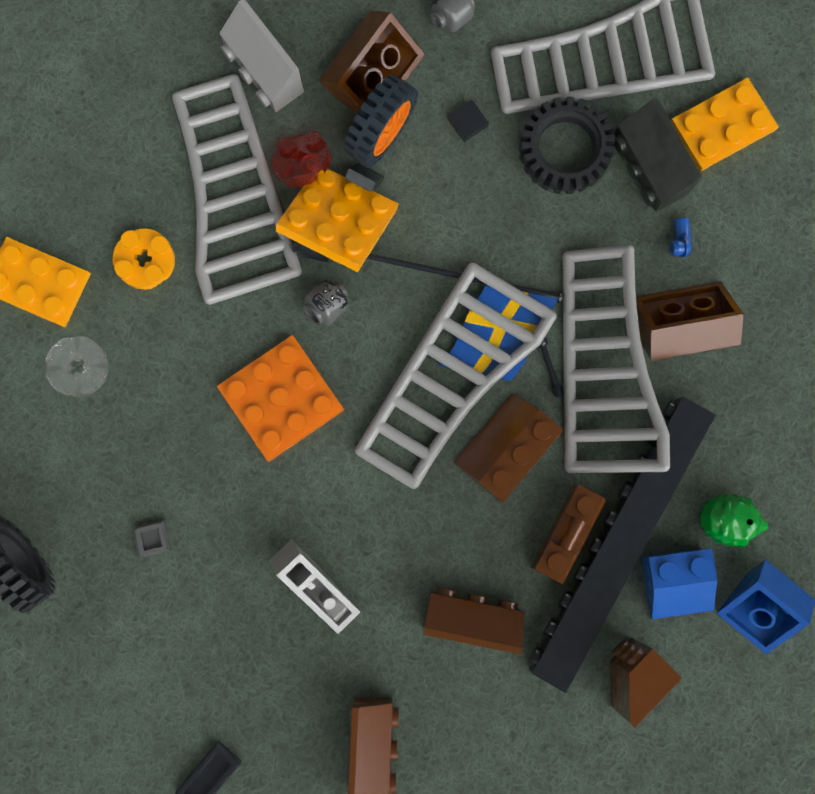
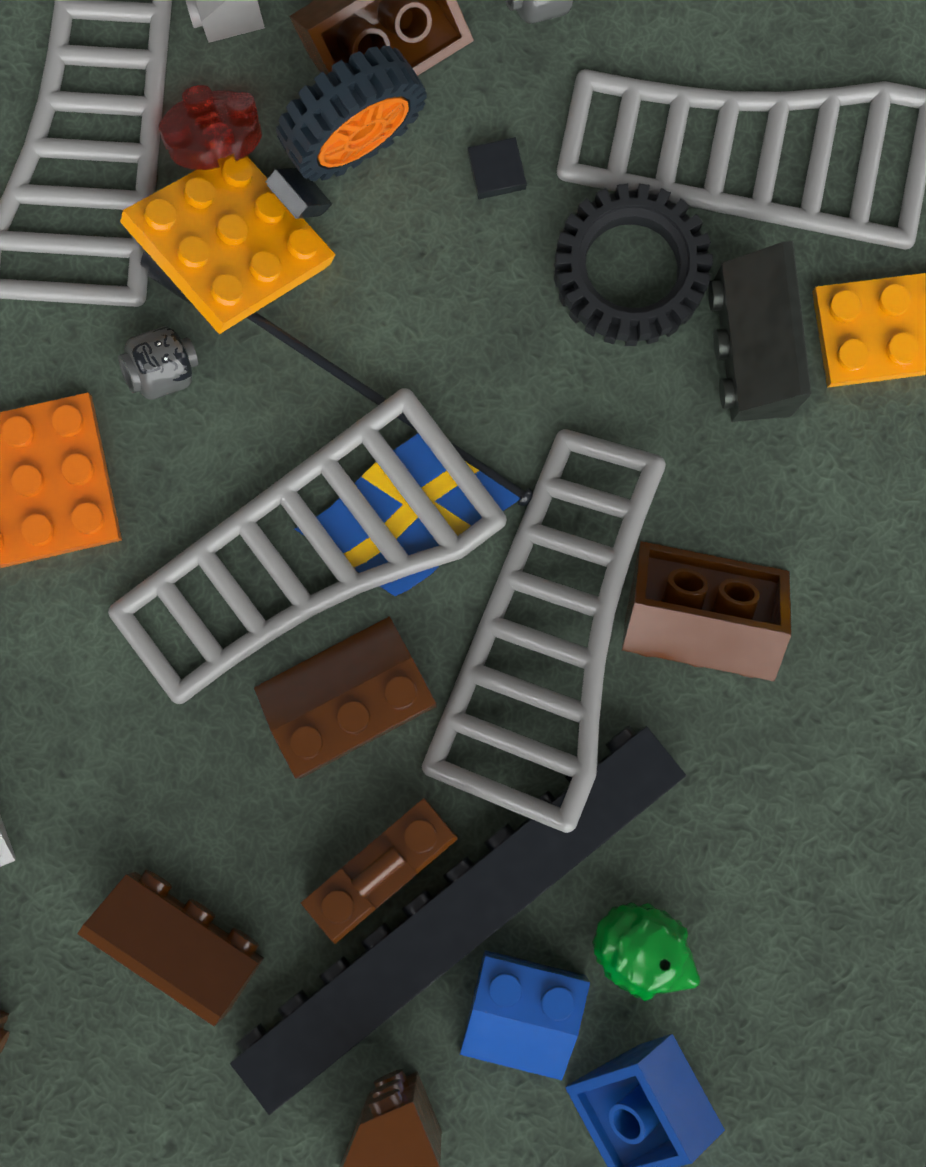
camera: 20 degrees right, 0 degrees up
(557, 389) = (462, 638): black hinge -> none
(682, 245) = (751, 489): blue arm -> none

